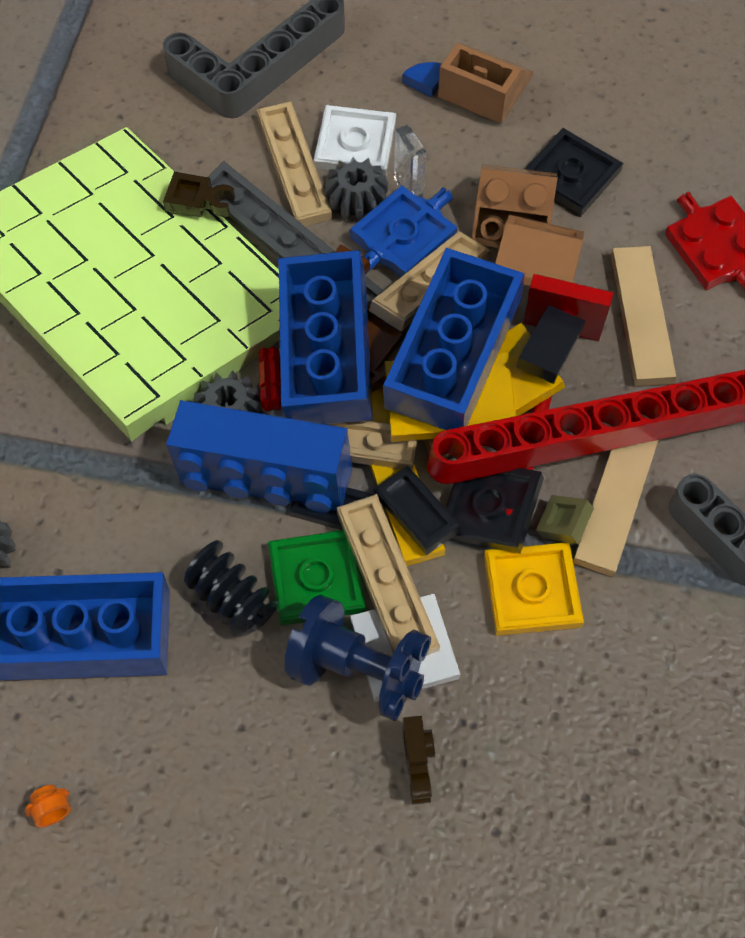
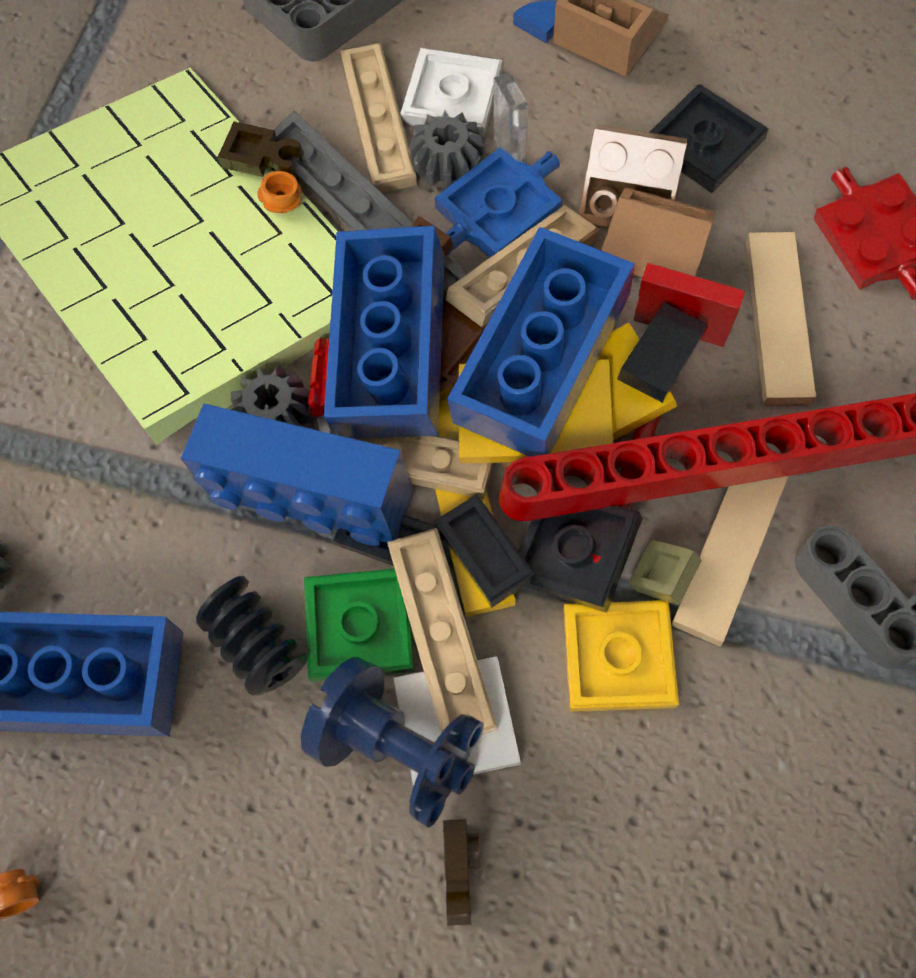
camera: 10 degrees right, 5 degrees up
(218, 229) = (279, 192): none -> orange plate

